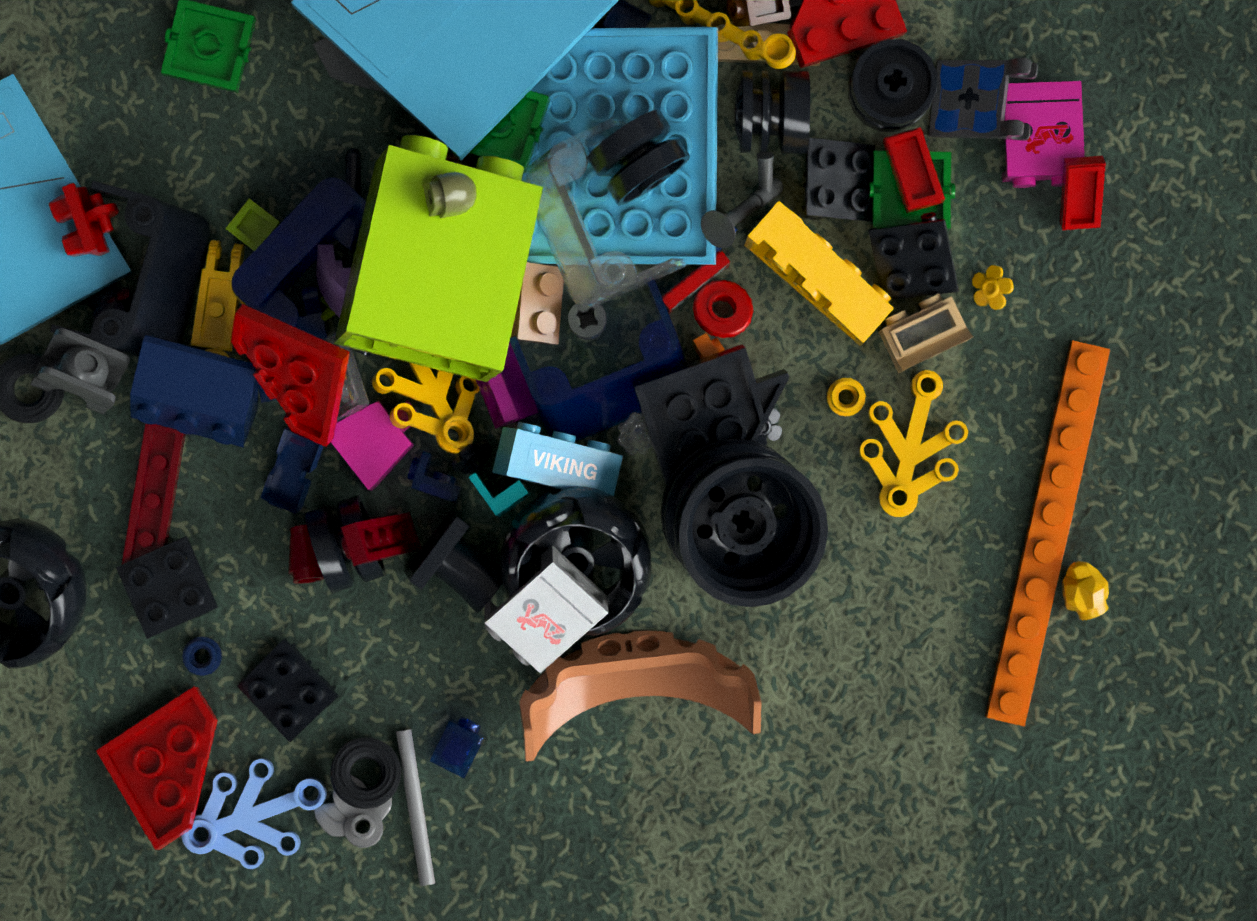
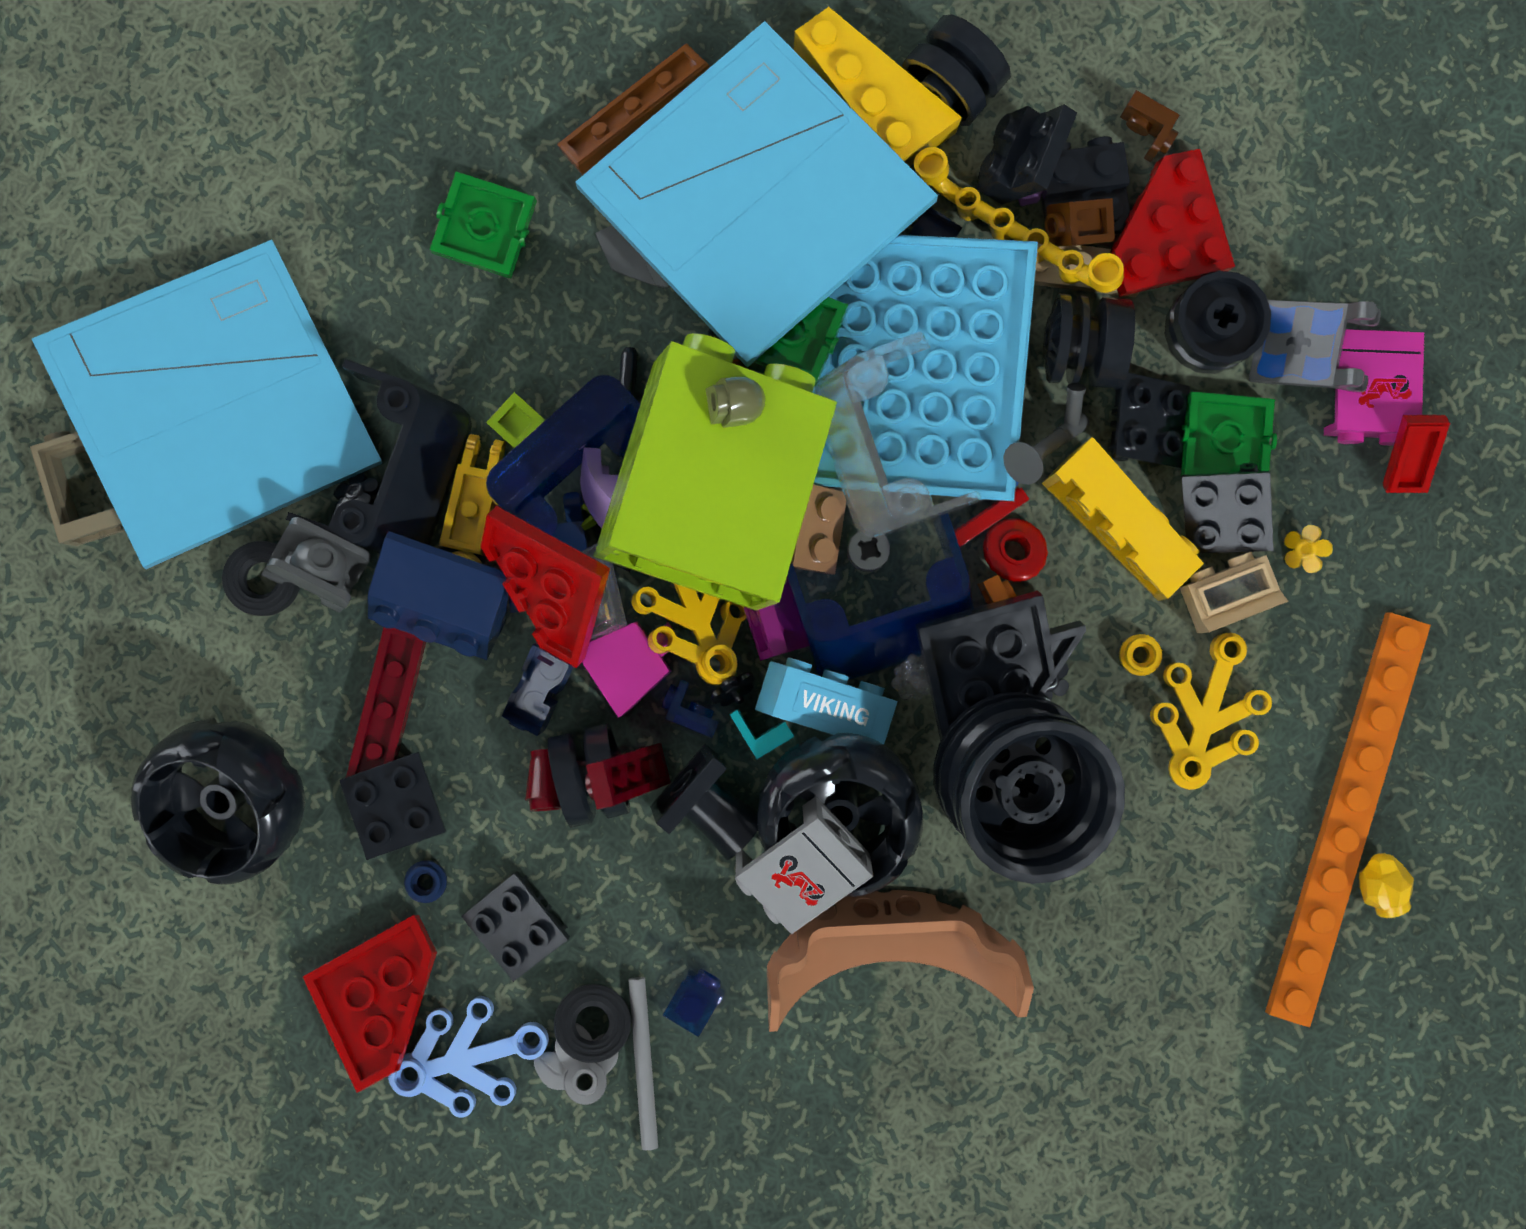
camera: 10 degrees right, 0 degrees up
(90, 218) = (340, 402): red hips -> none
(638, 157) = (944, 377): black wheel -> none
(913, 170) = (1234, 415): red tile -> none

